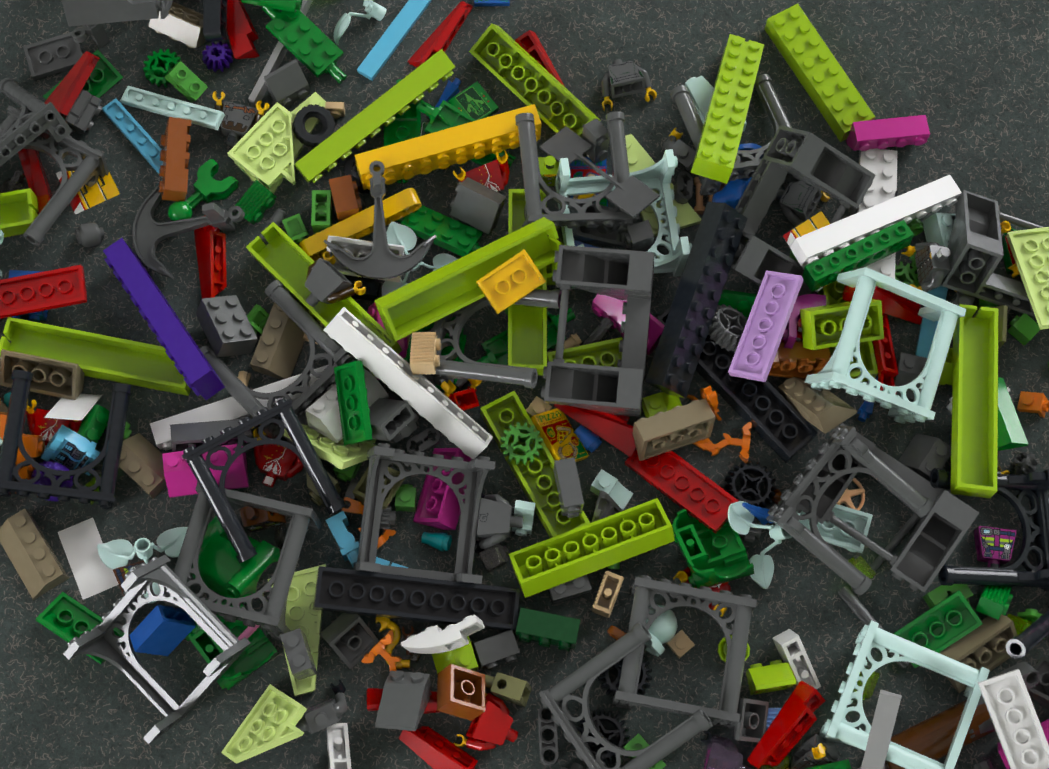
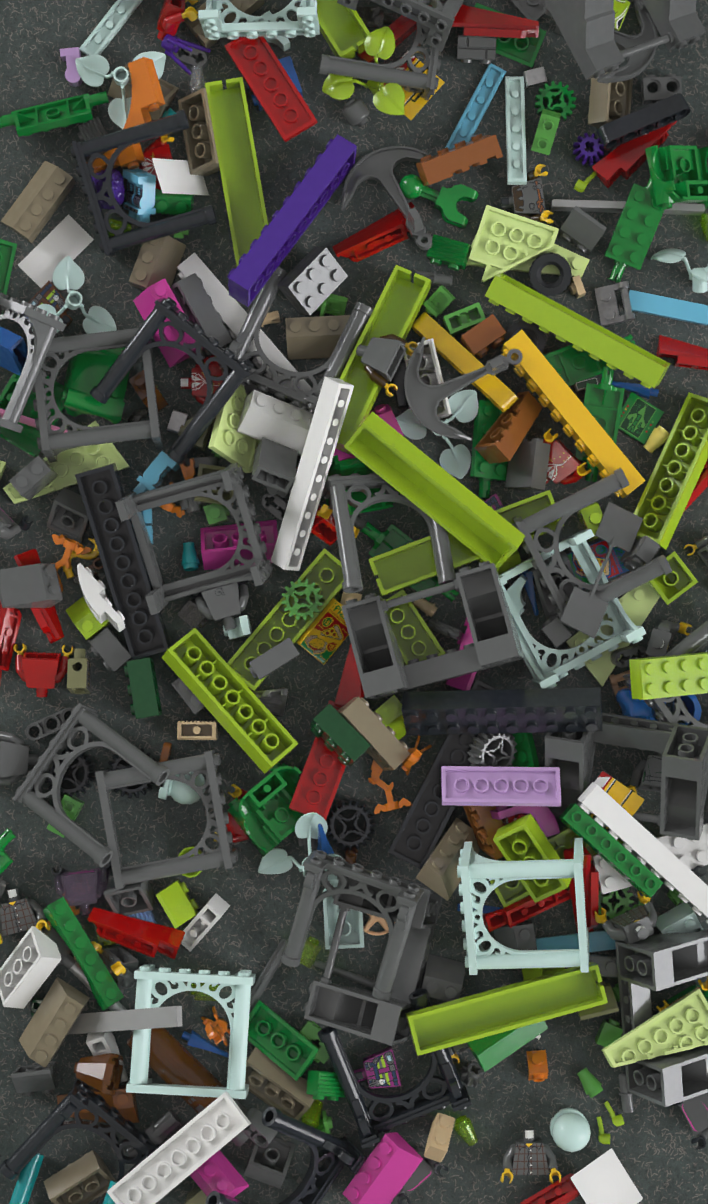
camera: 70 degrees right, 15 degrees up
(92, 197) = (386, 98): none -> lime plant
(132, 77) = (535, 76): none -> flat silver piece
(246, 75) = (581, 185): none -> lime hand
(302, 500) = (177, 419): none -> flat silver piece
(353, 403) = (274, 431): green plate -> none
(363, 91) = (608, 304): none -> flat silver plate
(424, 353) = (343, 477): tan brick -> none
(440, 208) = (509, 429): none -> dark orange wedge
(461, 692) = (56, 633): dark orange brick -> none
(498, 95) = (656, 439): none -> light yellow cone
(510, 281) = (445, 530): yellow tile -> none
(588, 439) = (338, 658): blue cone -> none
(611, 485) = (297, 698): light aqua arch -> none
(635, 122) = (676, 582): none -> lime slope
(664, 457) = (339, 735): none -> dark green brick
(680, 644) = (180, 812): tan plate -> none
(906, 684) = (216, 1029): none -> orange piece
(910, 714) = (197, 1041): none -> blue piece

